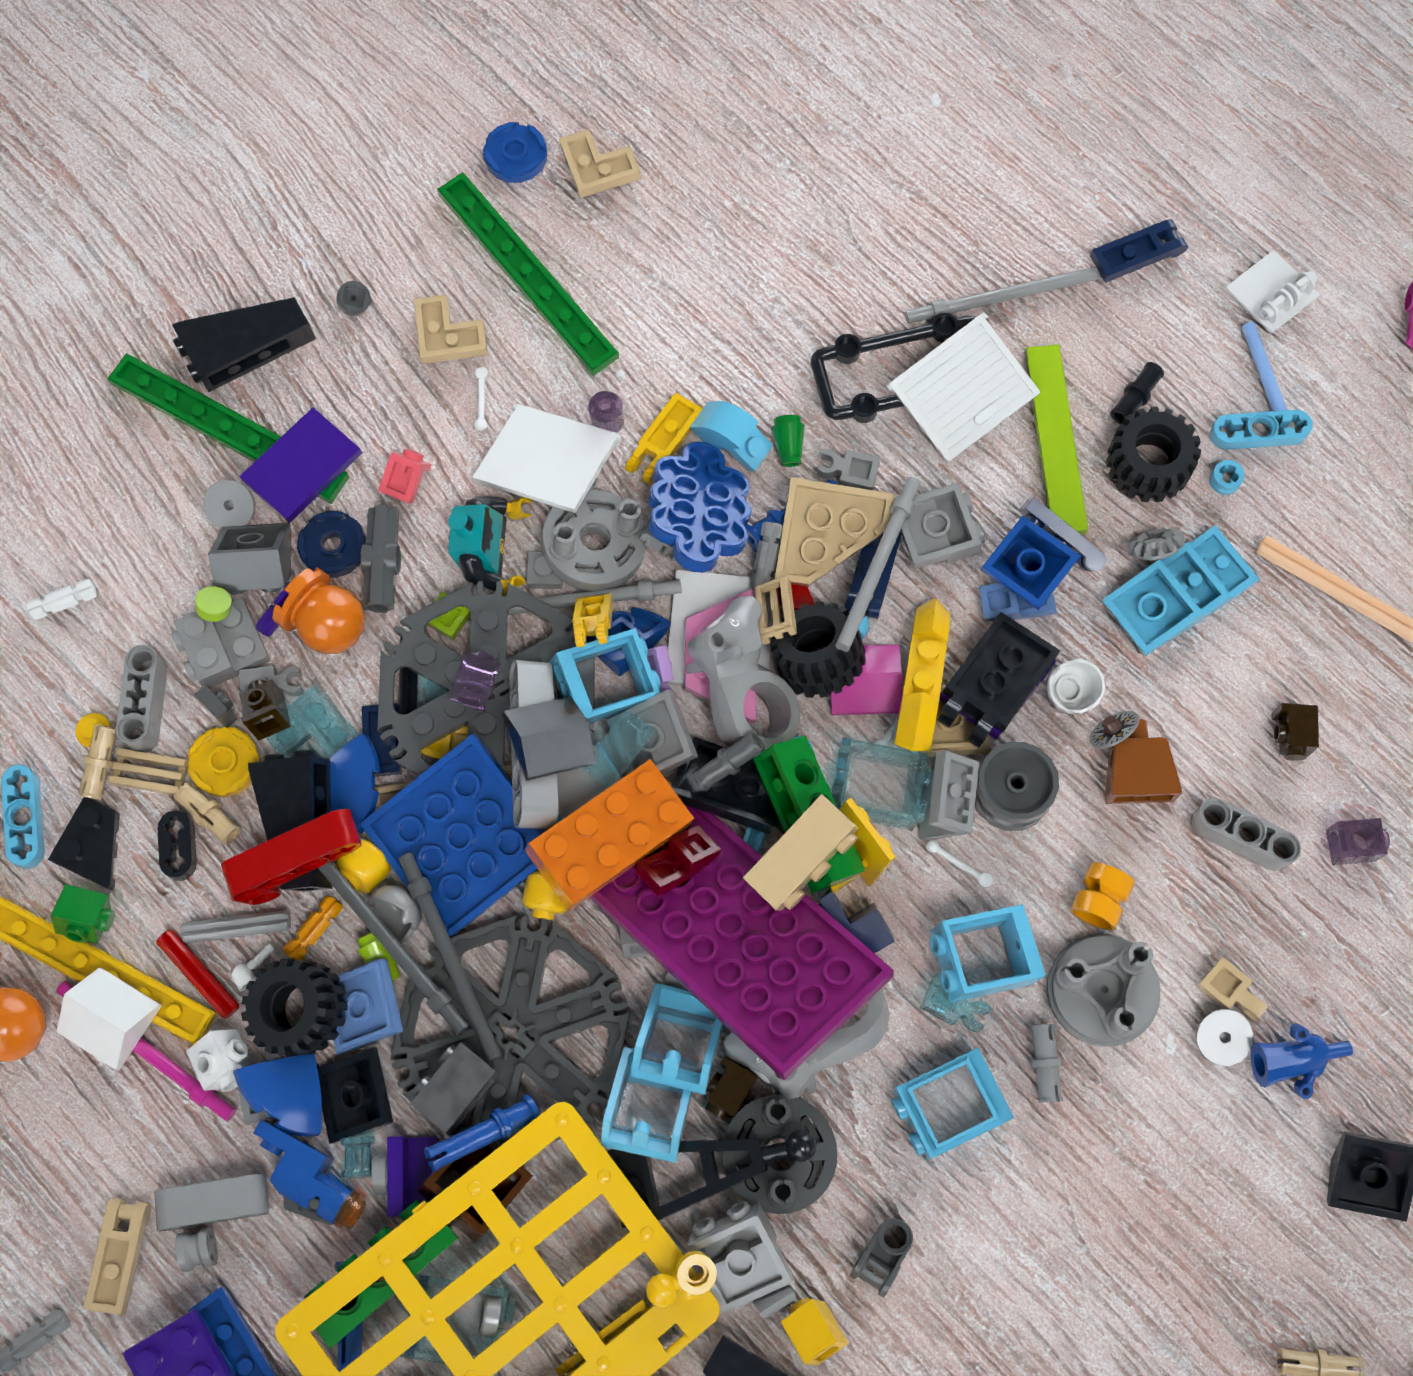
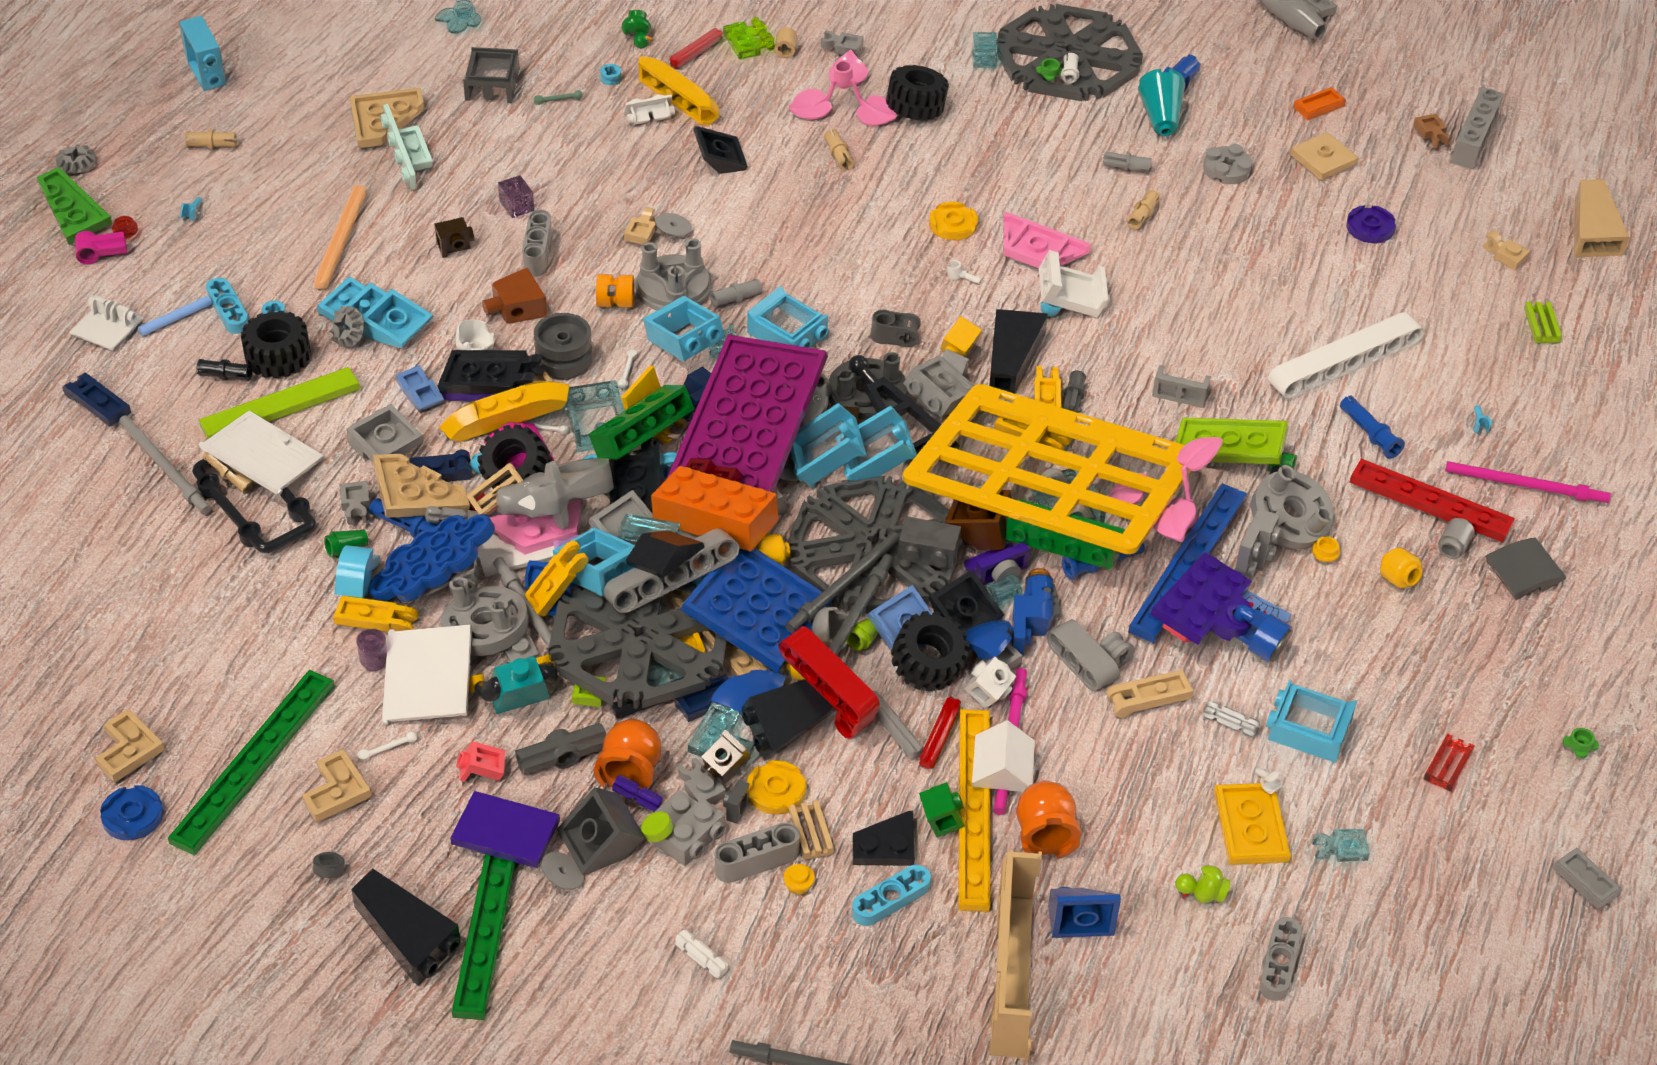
camera: 120 degrees left, 25 degrees down
(97, 761) = (822, 855): tan pin -> none
(186, 845) = (856, 786): black beam -> none
(207, 813) = (822, 774): tan pin -> none
(243, 973) = (924, 706): white hand -> none
(313, 928) = (876, 681): light orange axle -> none
(325, 526) = (560, 778): dark blue tile -> none
(475, 680) = (640, 623): clear purple brick -> none
(499, 1126) = (938, 507): blue pin -> none
(663, 1289) = (966, 390): yellow plate -> none
(728, 761) = (626, 470): dark grey pin -> none
(802, 854) = (676, 395): tan brick -> none
(901, 511) = (385, 446): light grey bar -> none
(950, 797) = (591, 364): light grey bracket -> none
(1030, 562) = (393, 377): blue slope -> none
(1091, 557) = (363, 369): plate -> none
(1114, 729) = (496, 313): piece -> none
(1294, 1058) = (673, 195): blue piece -> none

